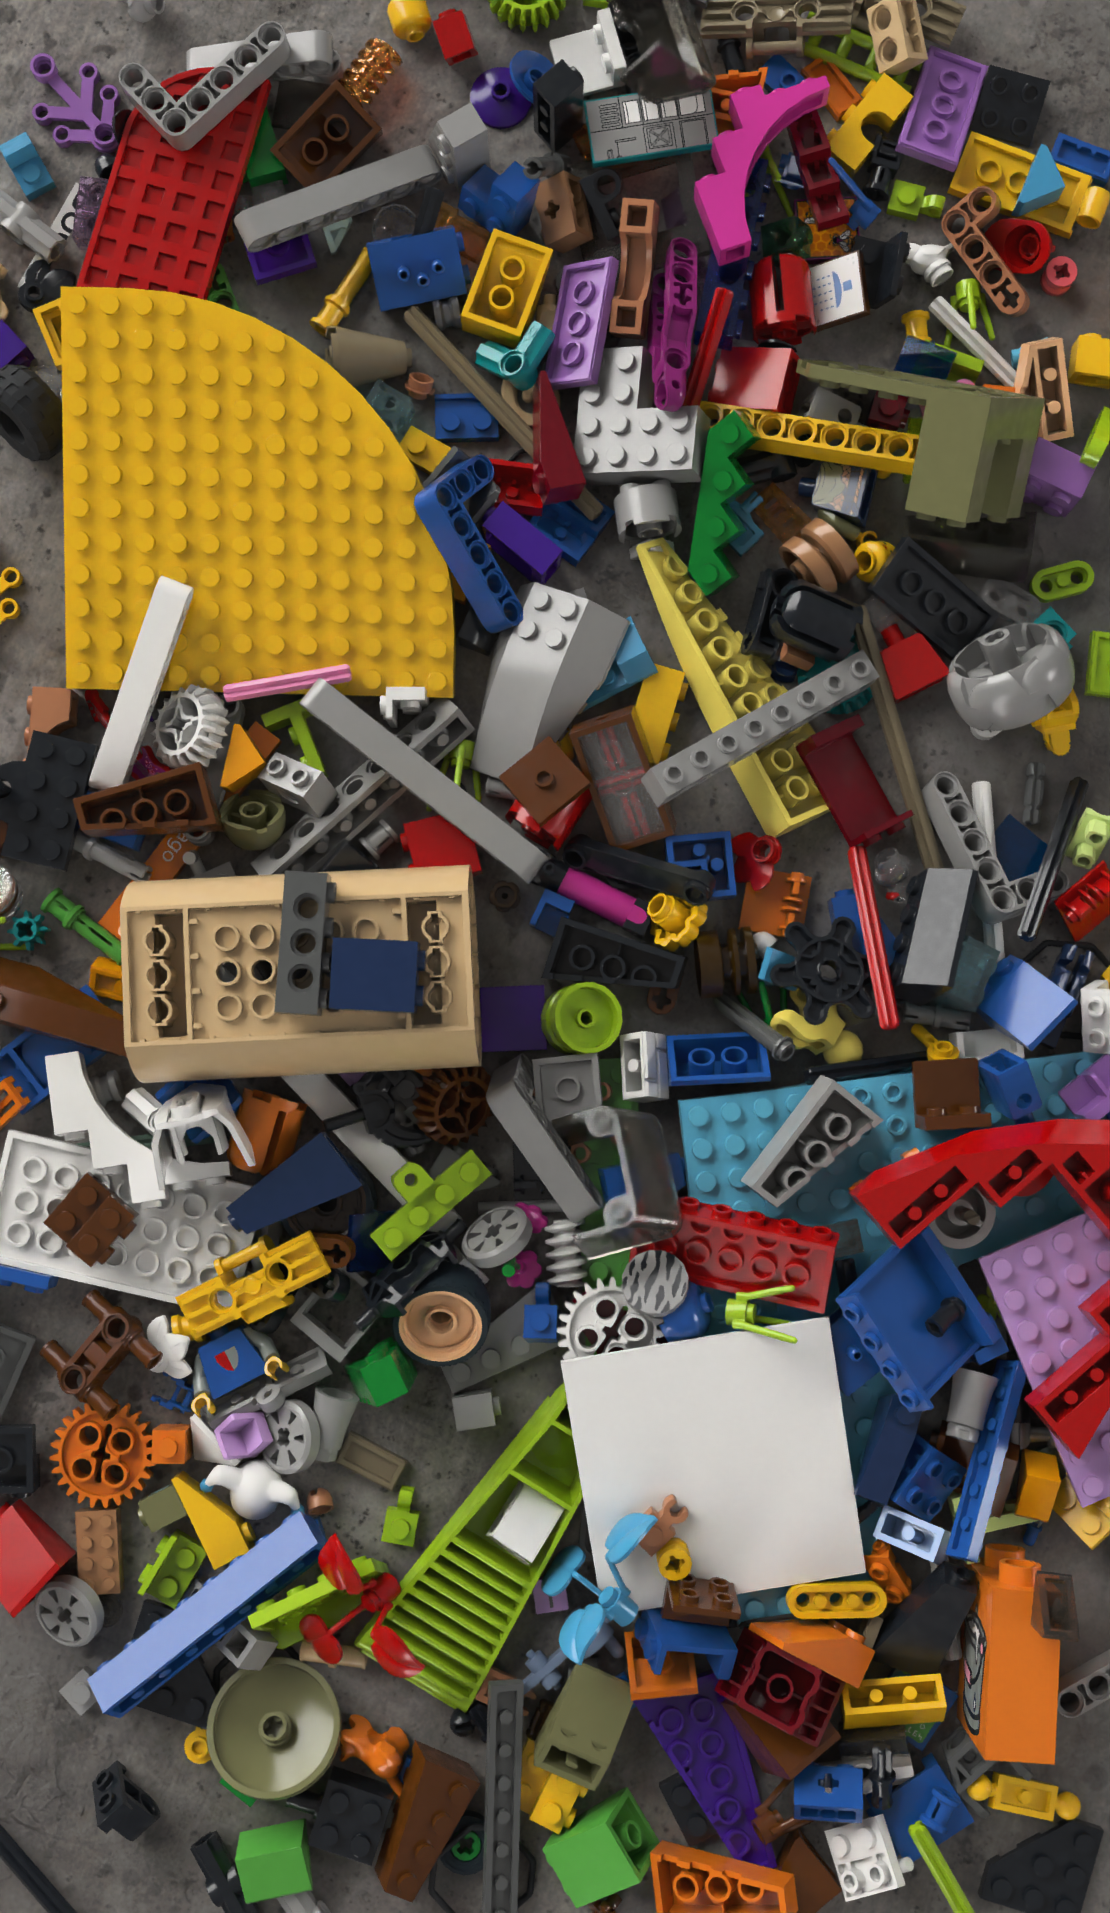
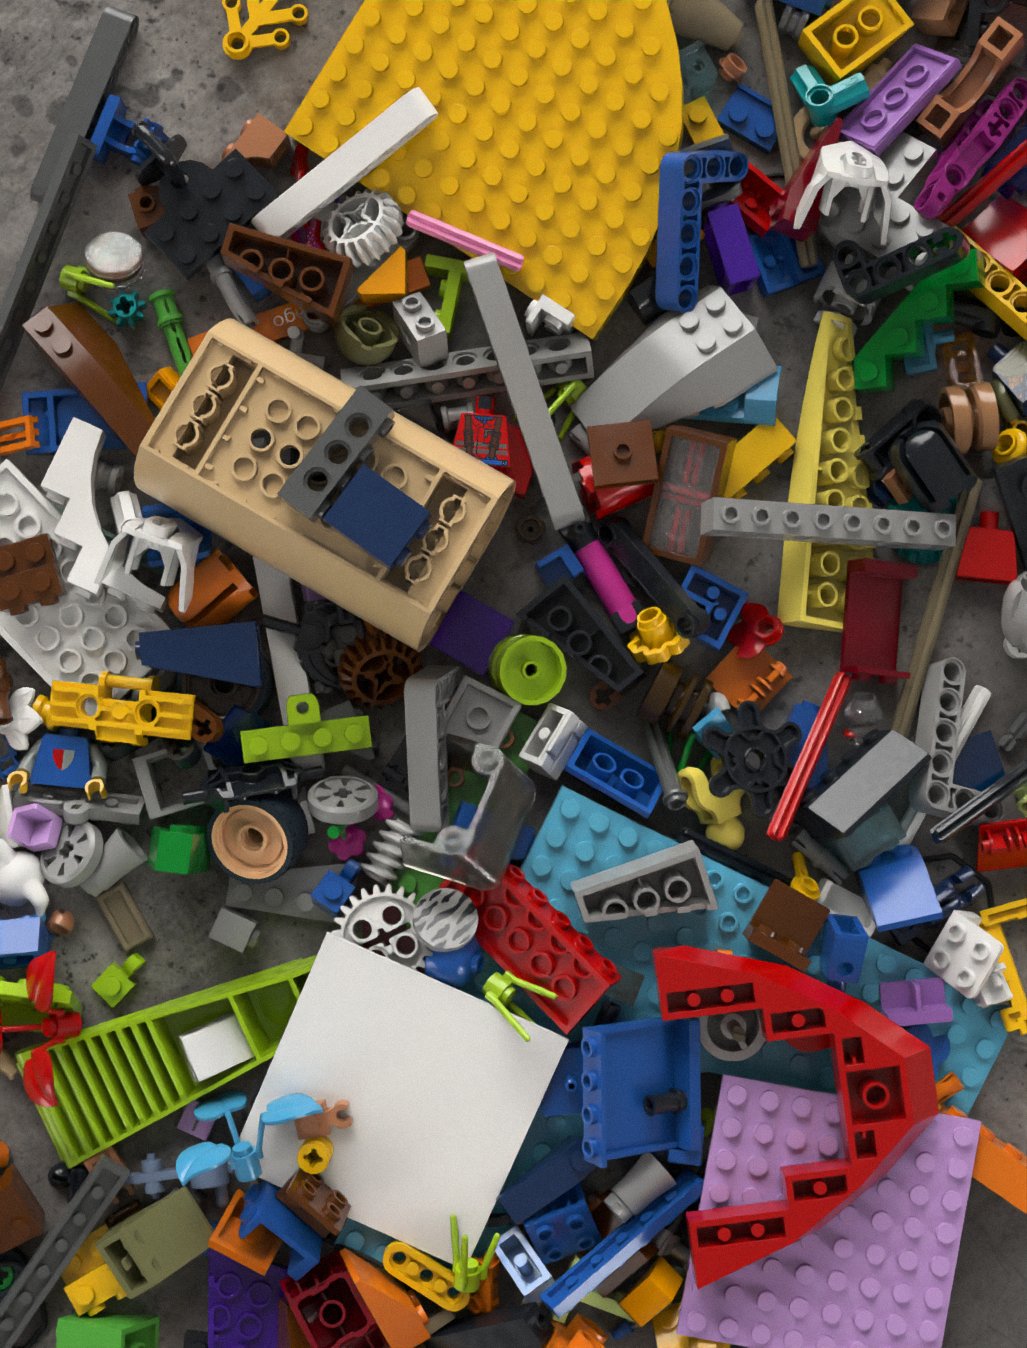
camera: 35 degrees right, 0 degrees up
(415, 841) = (484, 435): none -> torso
(578, 408) = (850, 166): none -> white piece
(679, 459) = (903, 259): none -> black beam
(869, 1571) = (467, 1269): none -> lime plant

